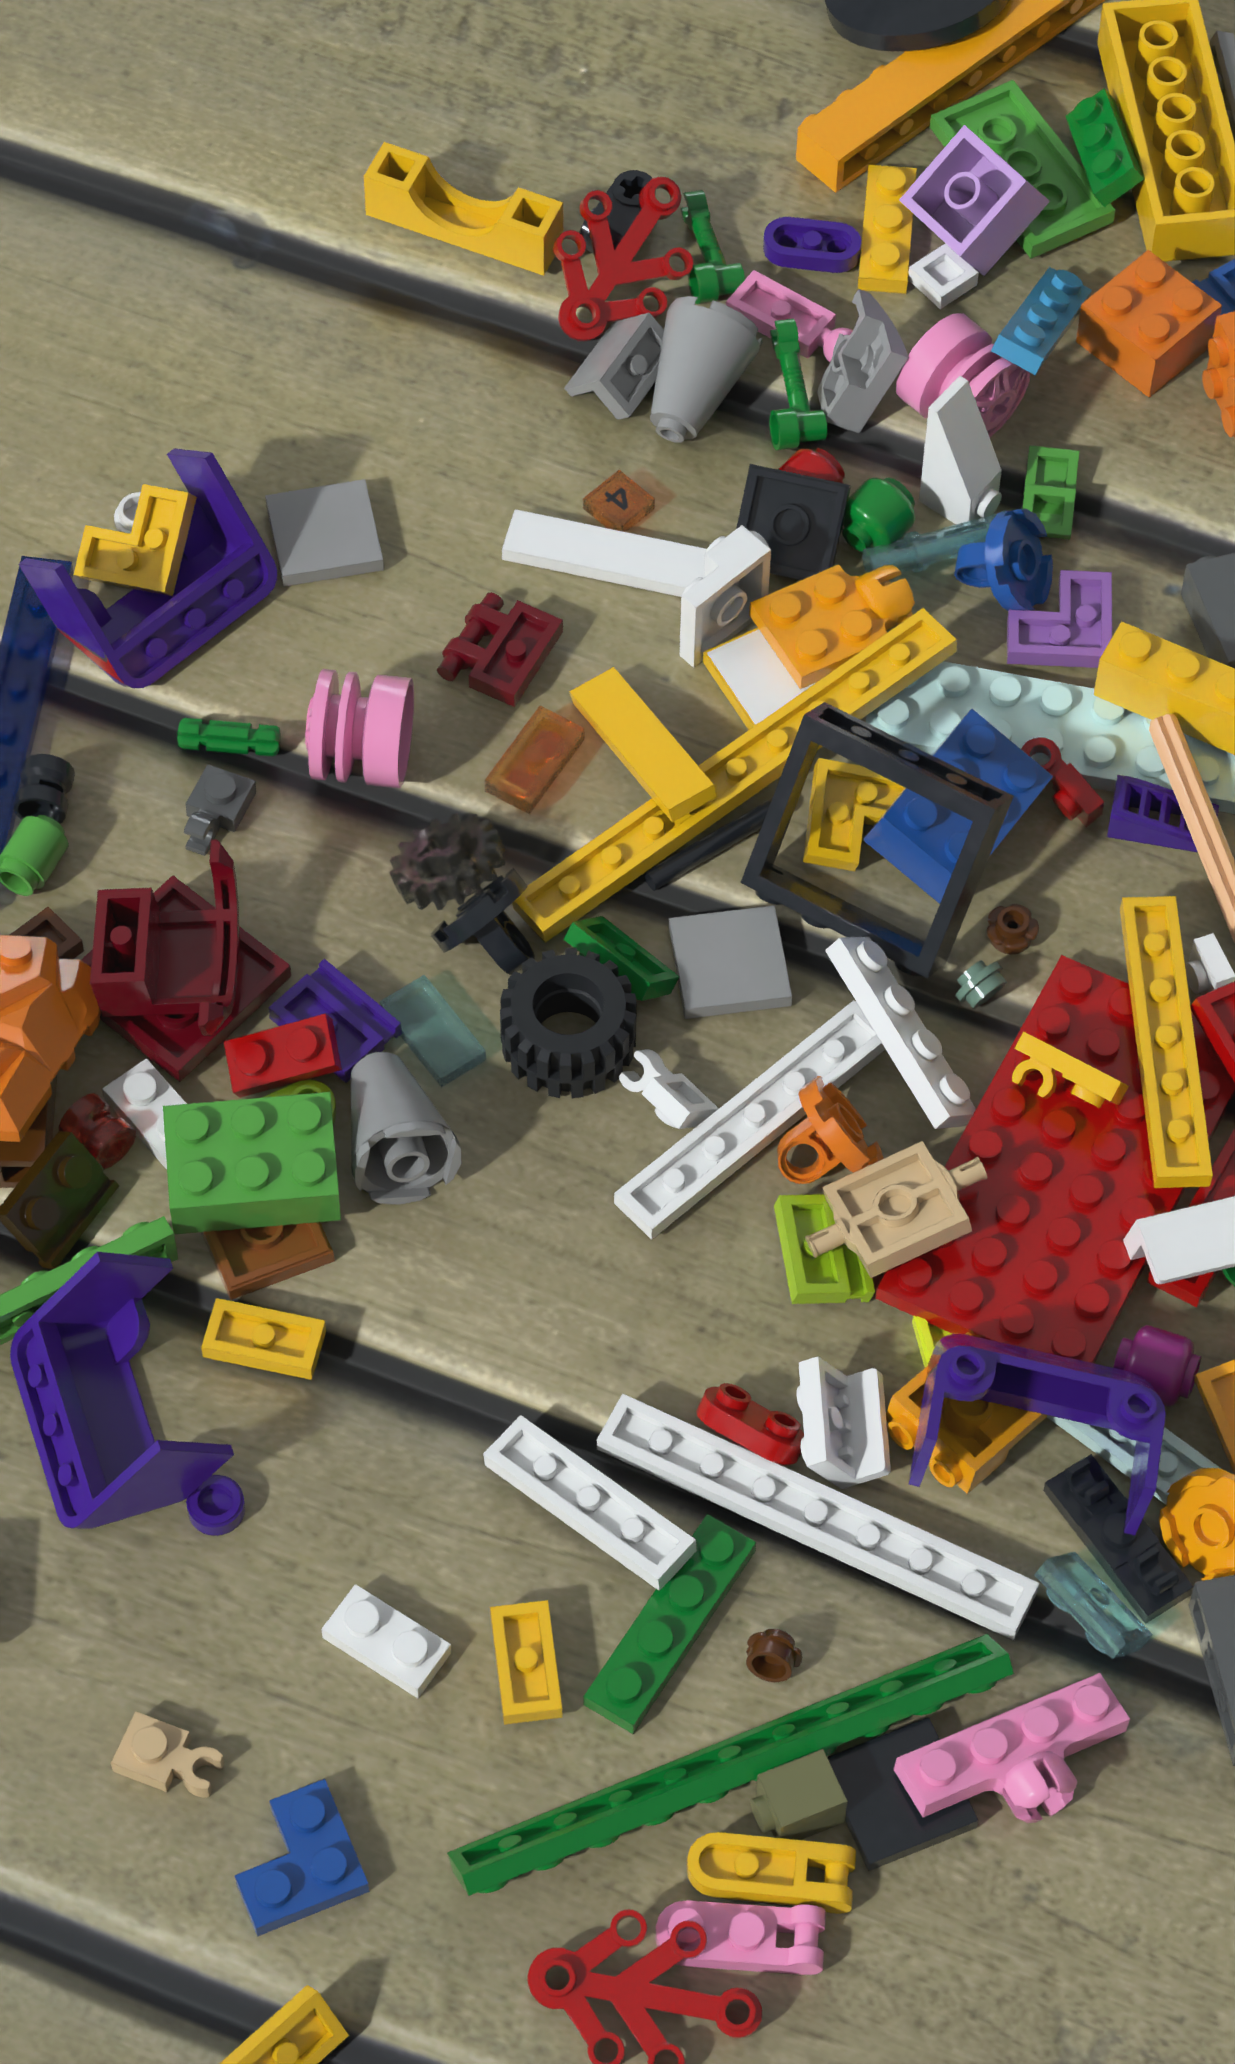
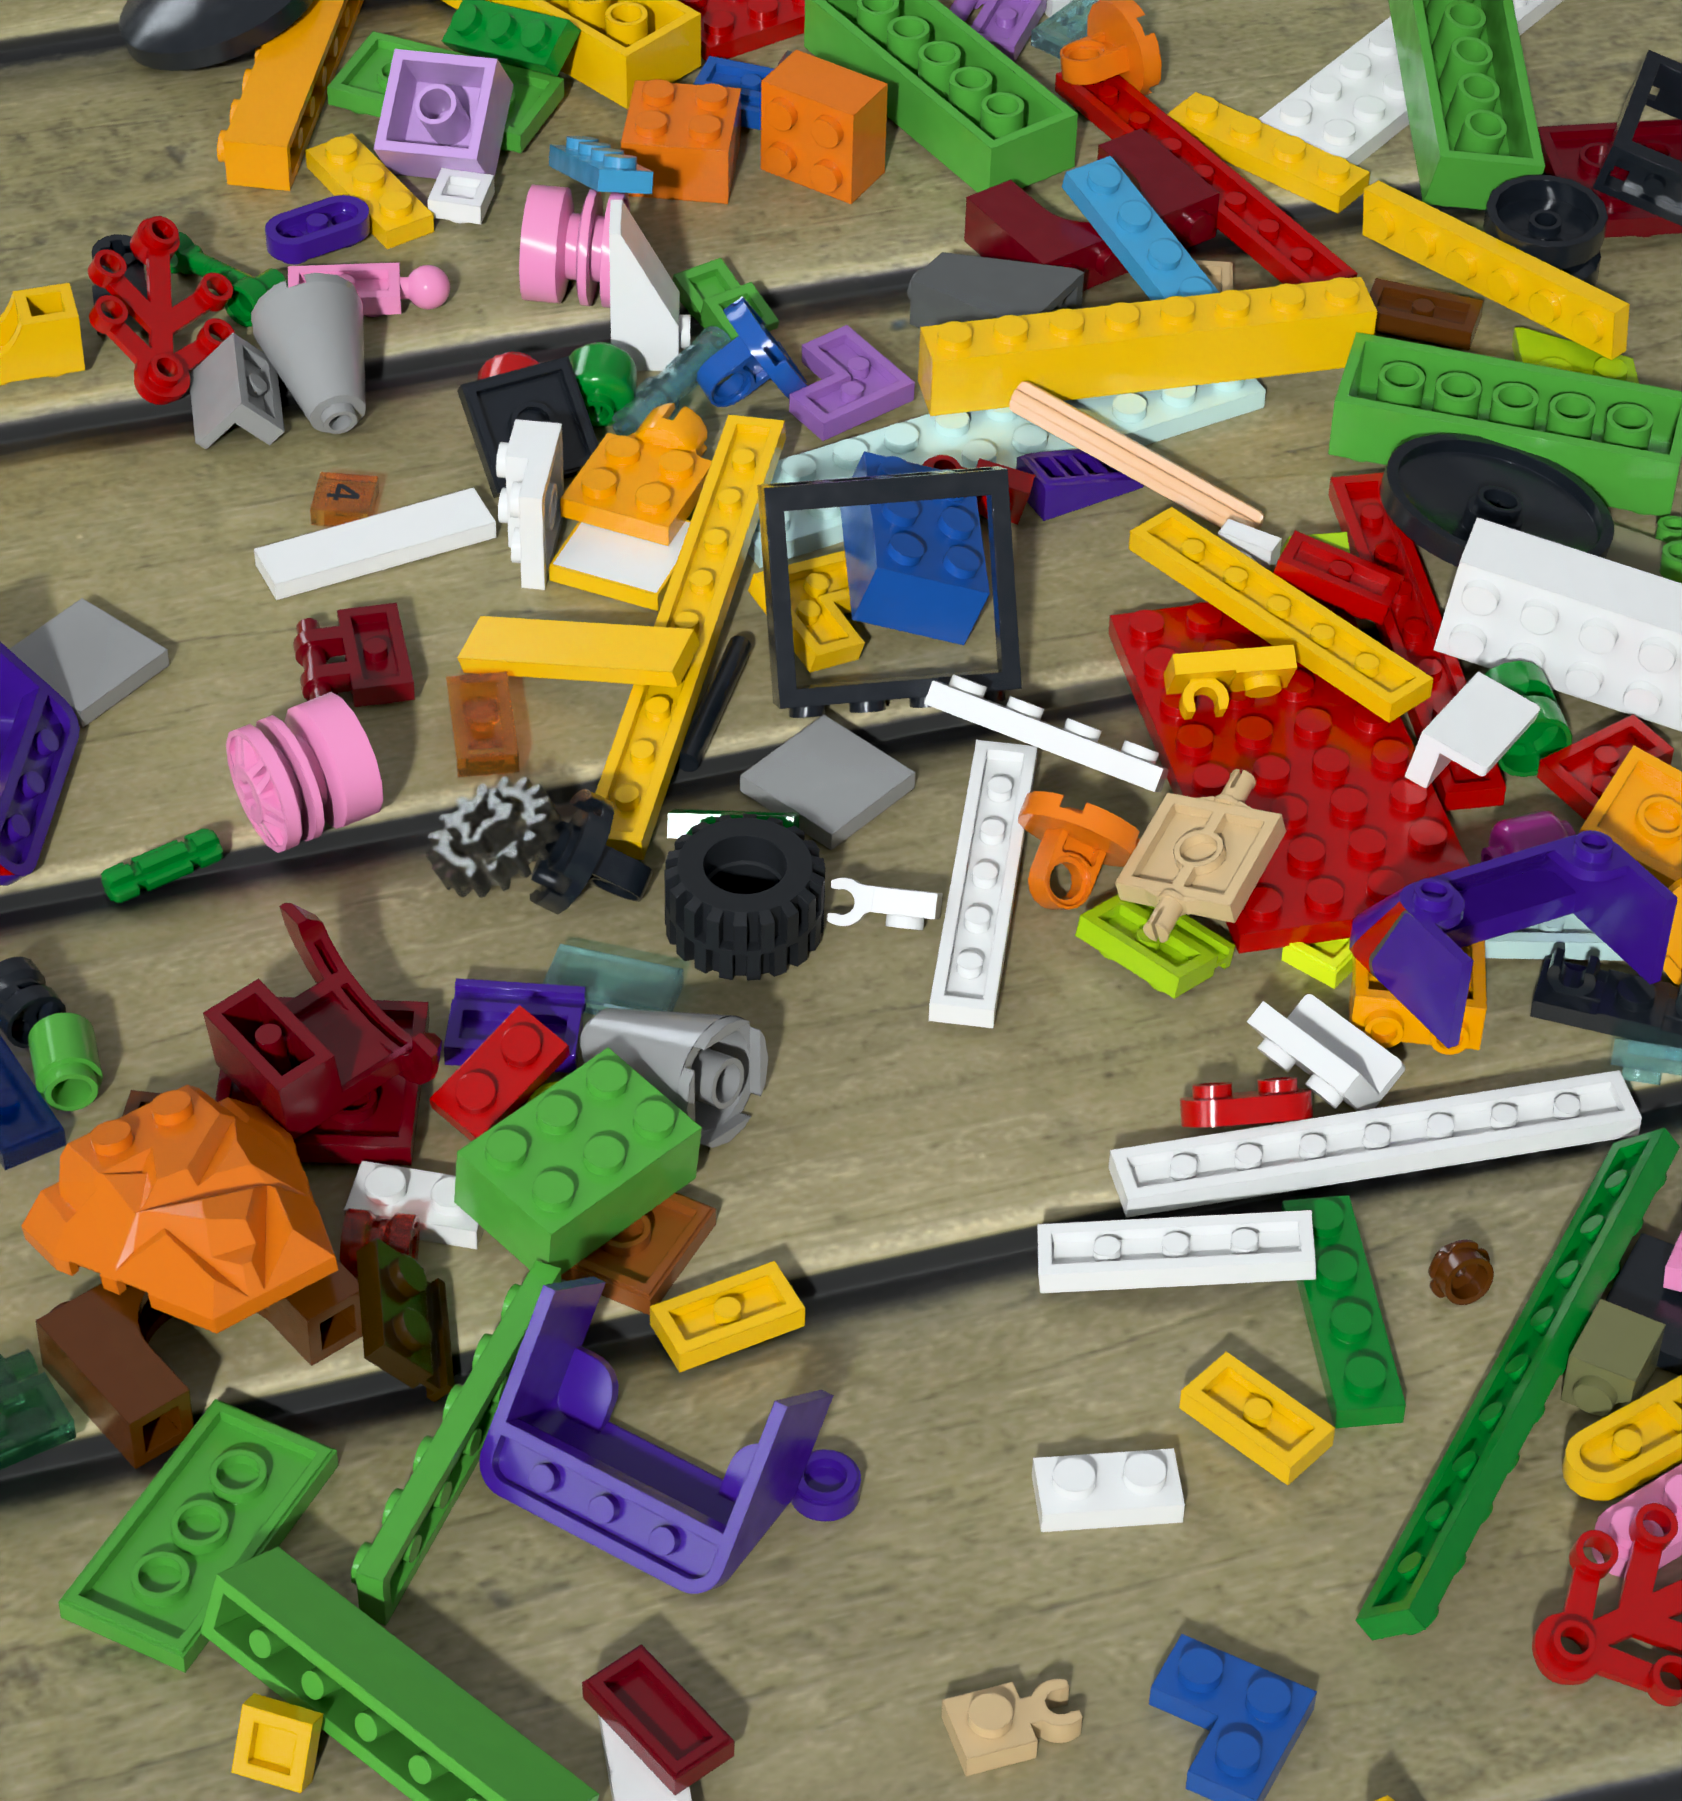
camera: 40 degrees left, 15 degrees down
(216, 803) = (209, 924): dark grey plate -> none
(797, 422) = (444, 362): green brick -> none
(861, 366) = (472, 279): light grey slope -> none
(980, 983) = (1066, 672): sand green plate -> none
(1007, 939) = (1044, 623): reddish brown plate -> none

